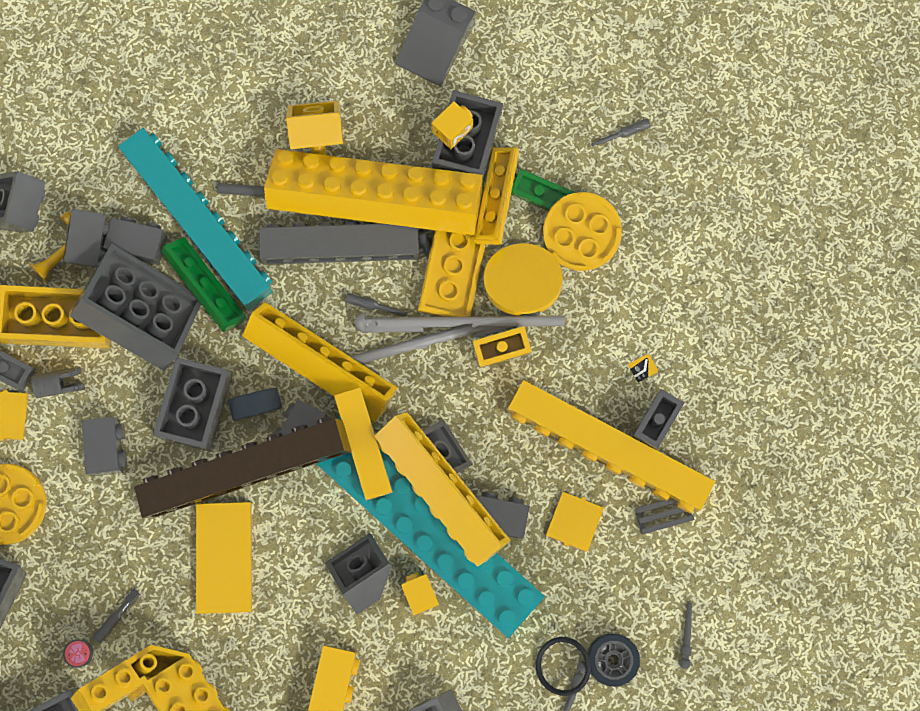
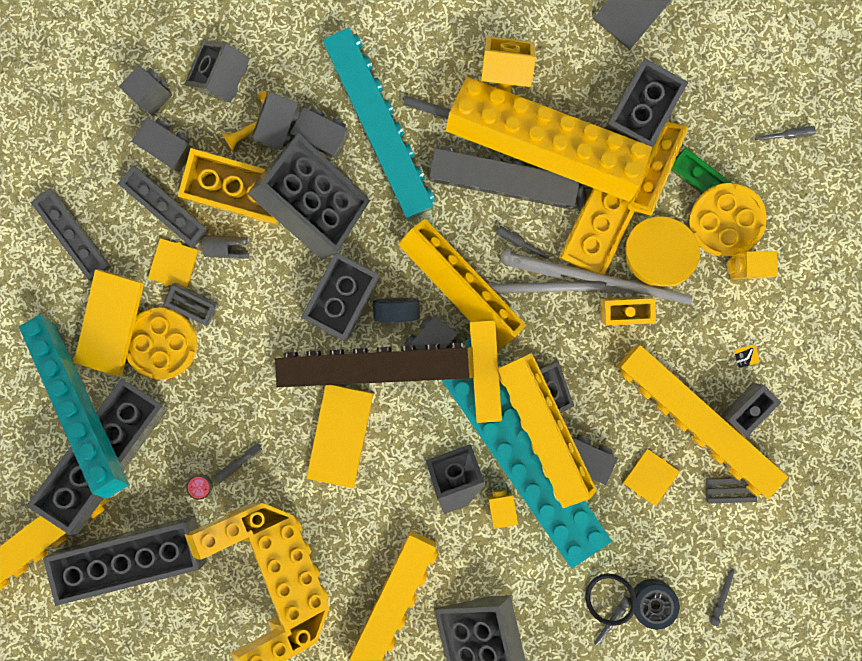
camera: 15 degrees right, 10 degrees up
(53, 457) = (209, 312): none -> dark grey tile
(103, 446) = (255, 314): dark grey brick -> none
(203, 284) = (373, 187): green plate -> none
(452, 124) = (638, 92): yellow brick -> none
(618, 270) = (753, 265): none -> yellow brick

